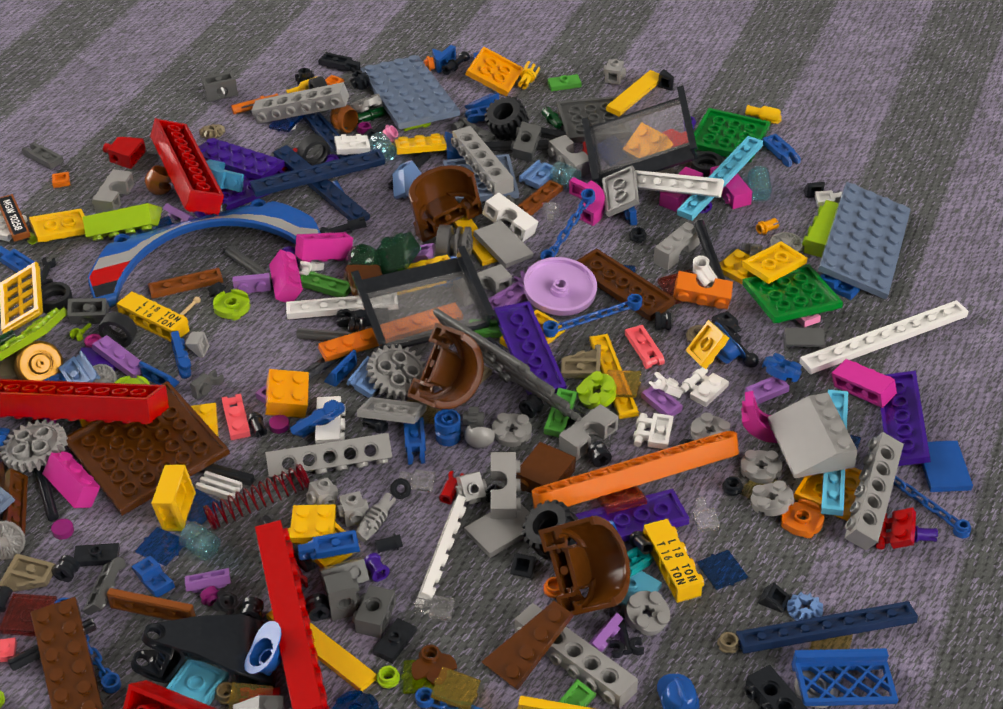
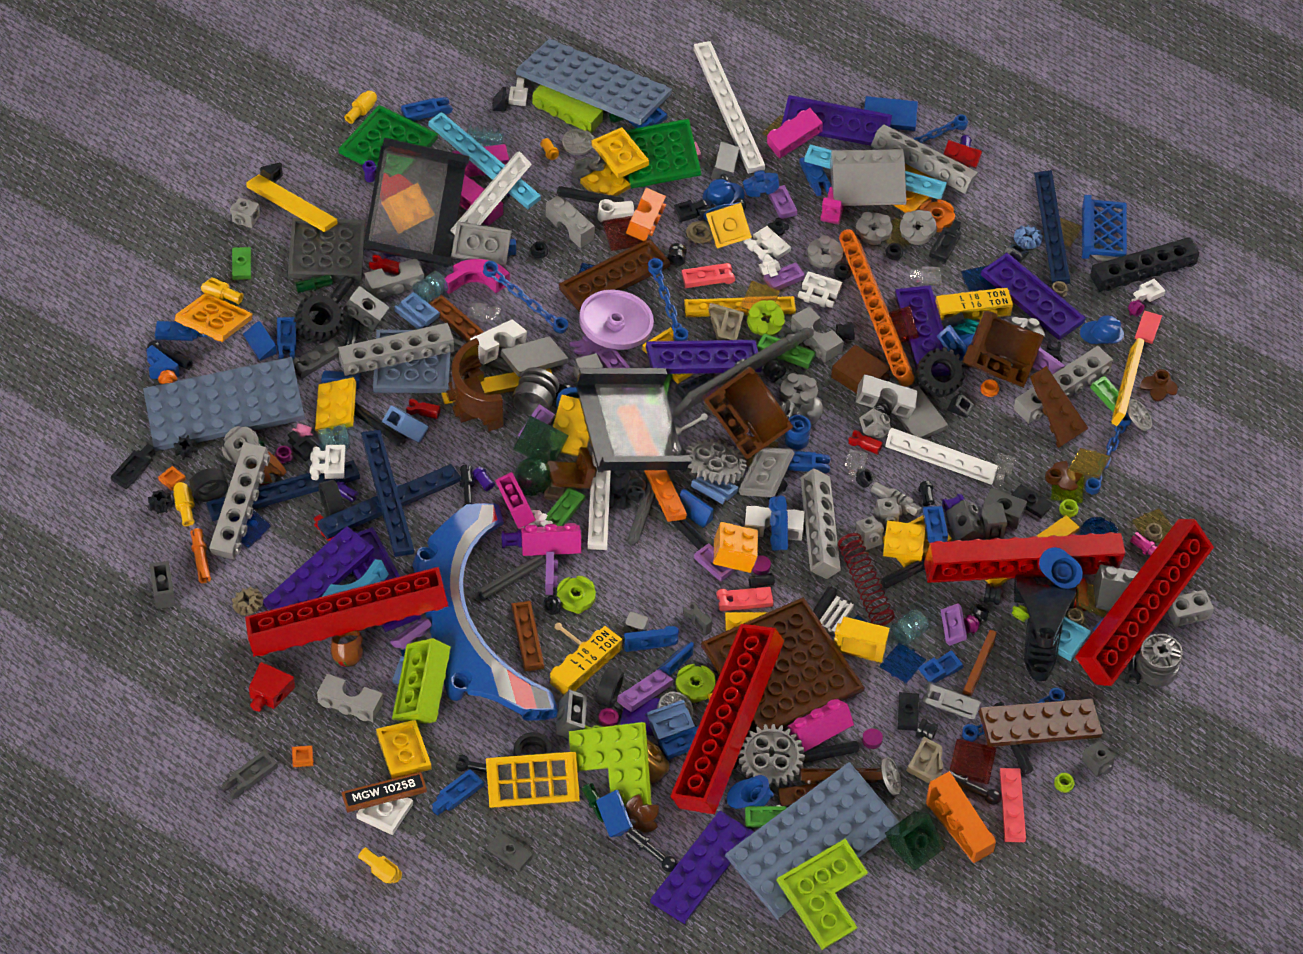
camera: 85 degrees left, 10 degrees up
(358, 233) = (480, 475): none -> dark purple pin
(706, 617) = (1033, 296): none -> dark purple plate
(732, 391) = (778, 226): none -> black plate
(762, 344) = (722, 192): none -> blue piece
(764, 529) = (946, 242): none -> black hinge

